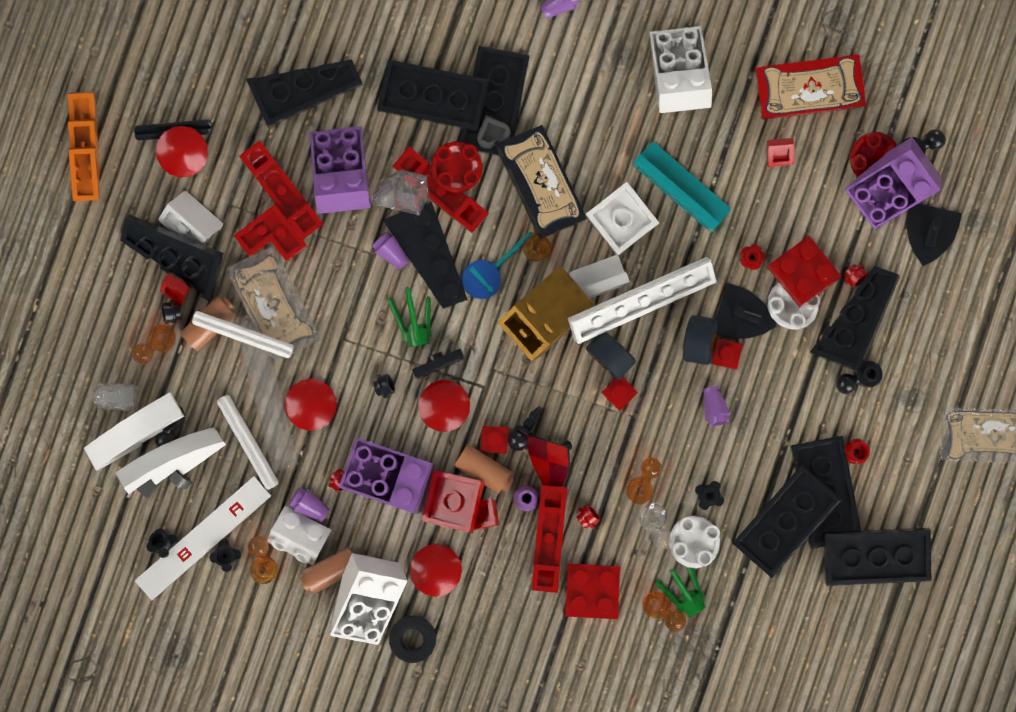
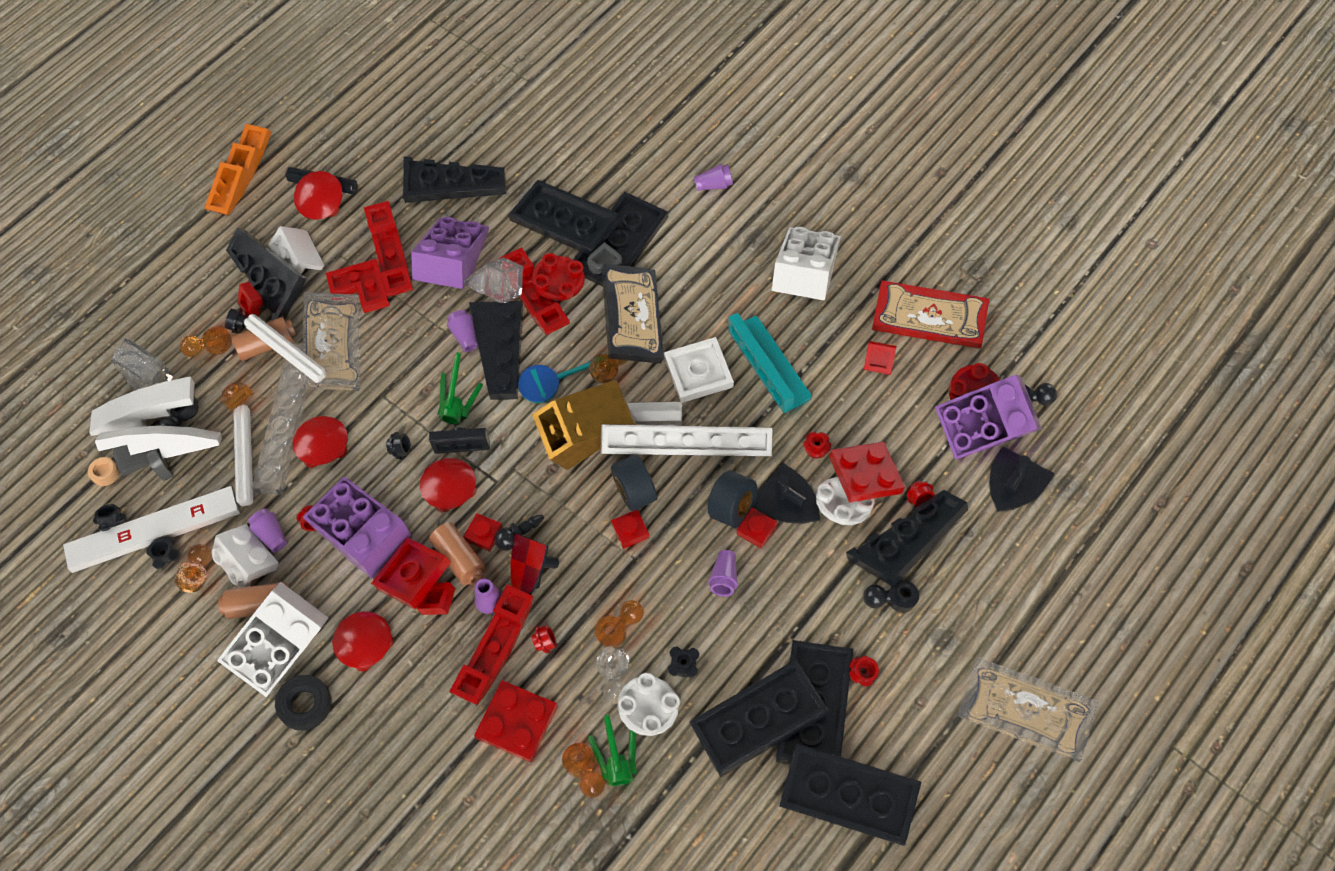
camera: 25 degrees right, 25 degrees down
(128, 503) = (103, 471): none -> light nougat tile
(213, 390) = (235, 395): none -> clear orange plate

